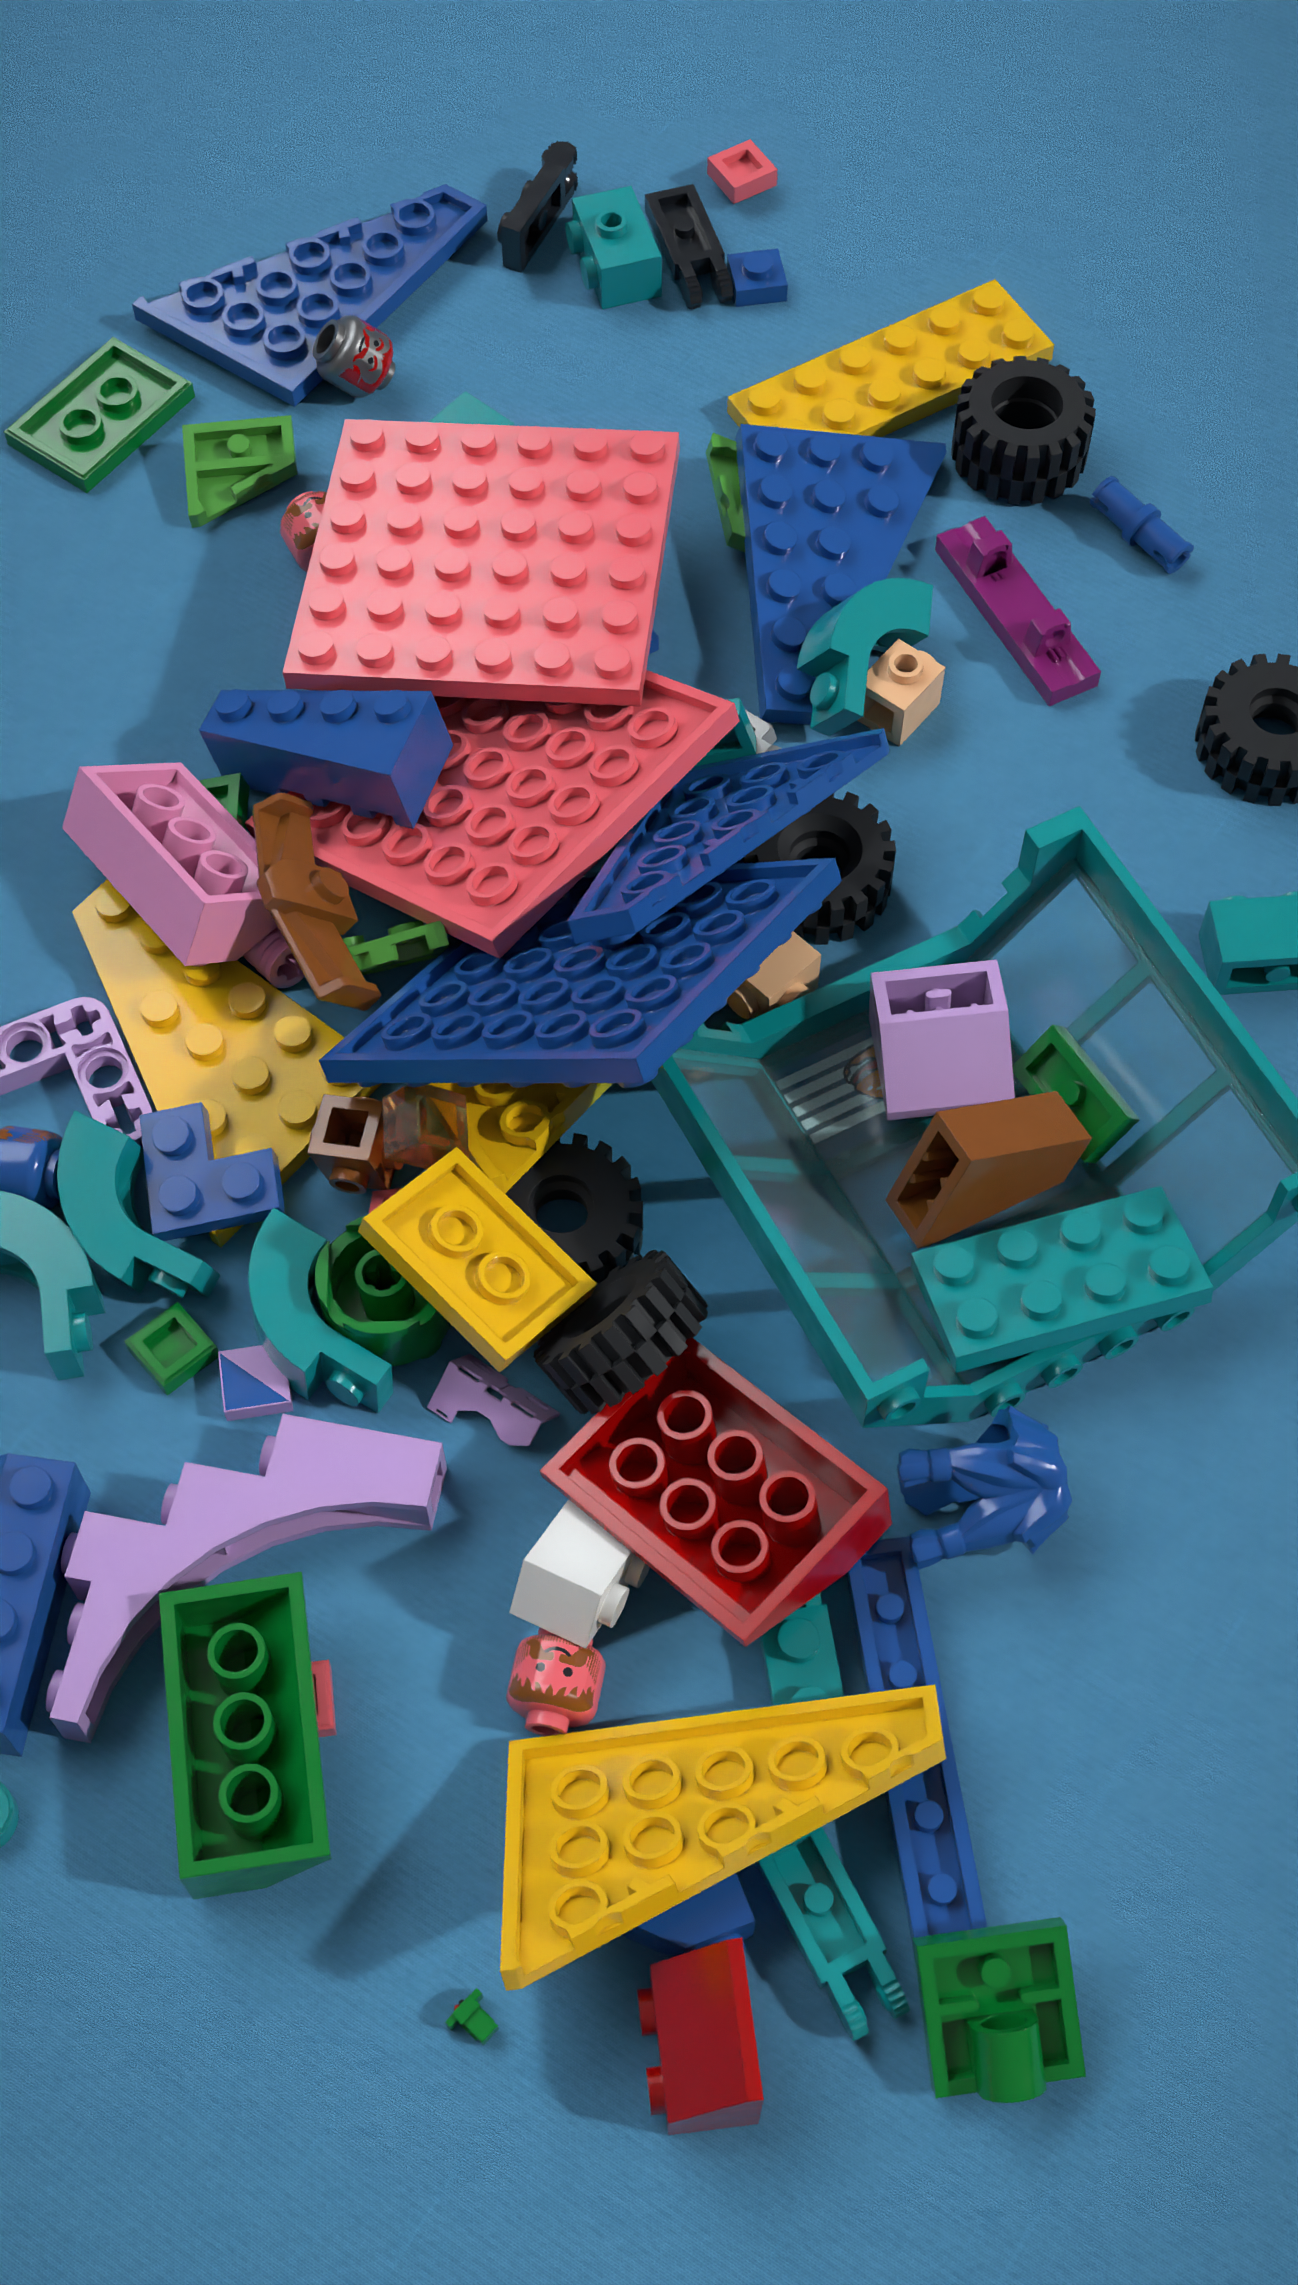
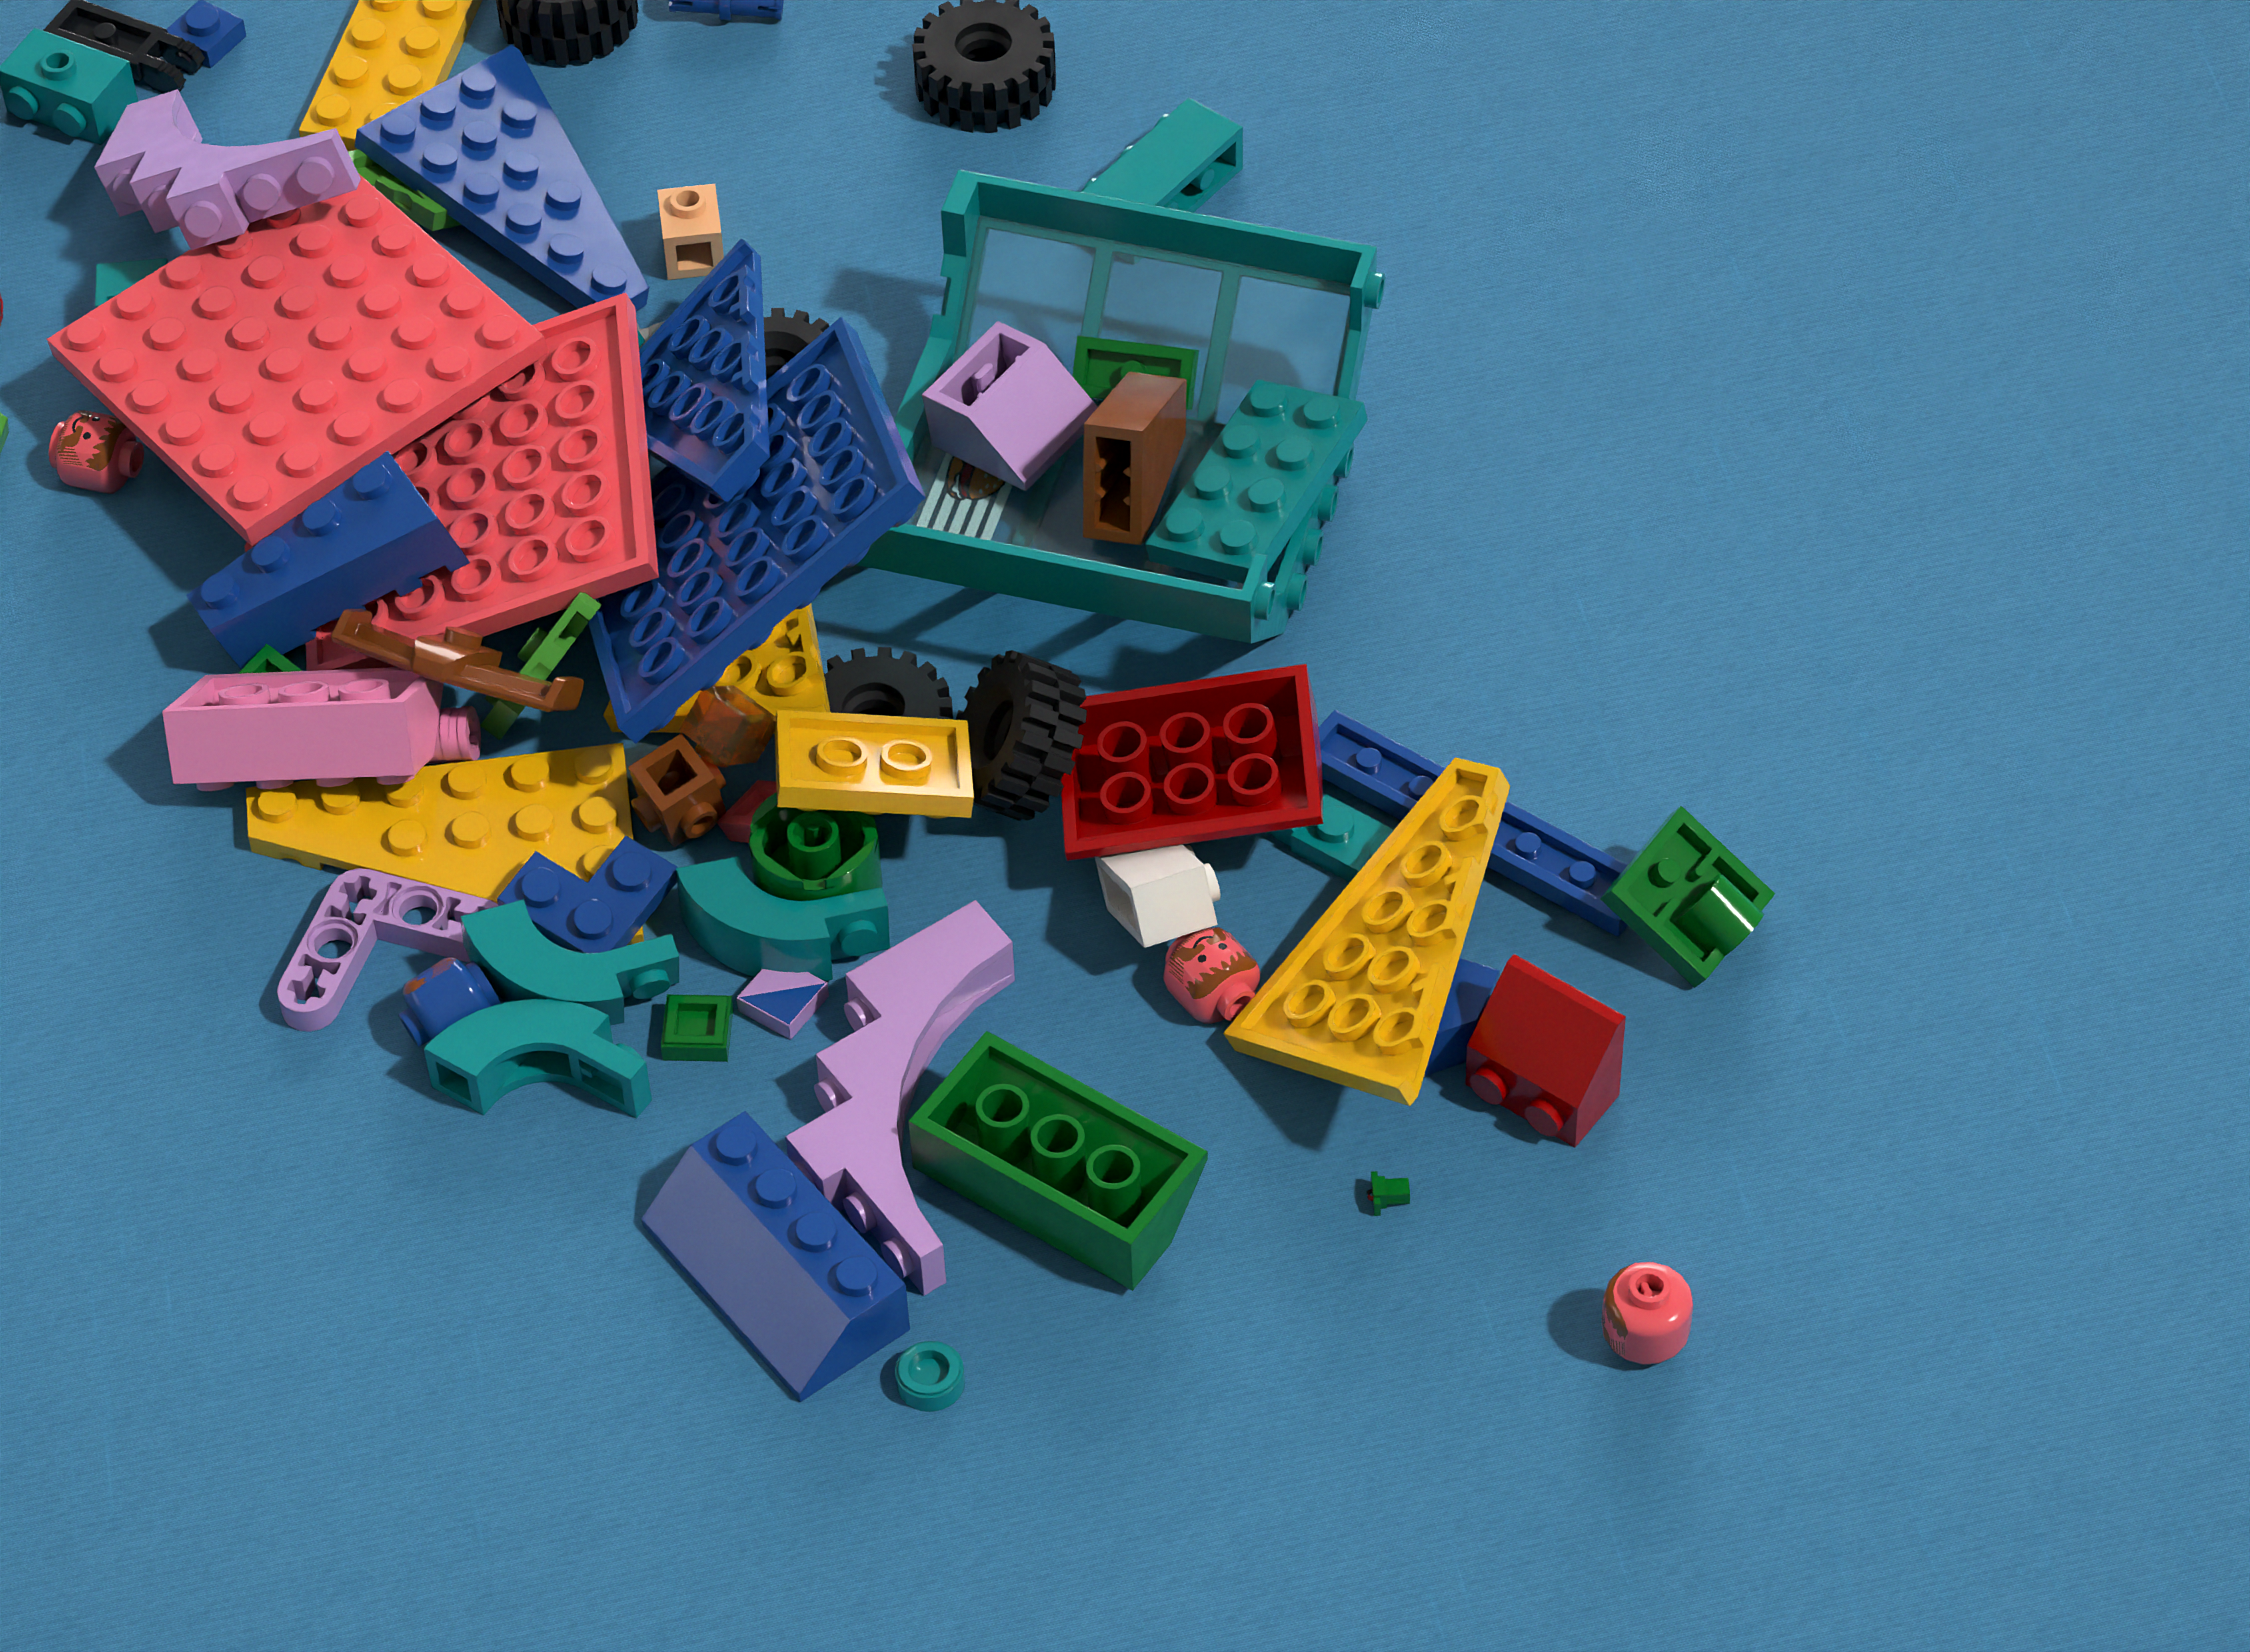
camera: 45 degrees left, 10 degrees down
(462, 1393) = (938, 880): lavender piece -> none
(563, 368) = (213, 190): none -> lavender arch
(831, 1926) = (1553, 947): teal hinge -> none
(843, 639) = (626, 227): teal arch -> none
(1010, 1474) = (1357, 619): blue piece -> none
(1018, 610) = (702, 119): magenta hinge -> none

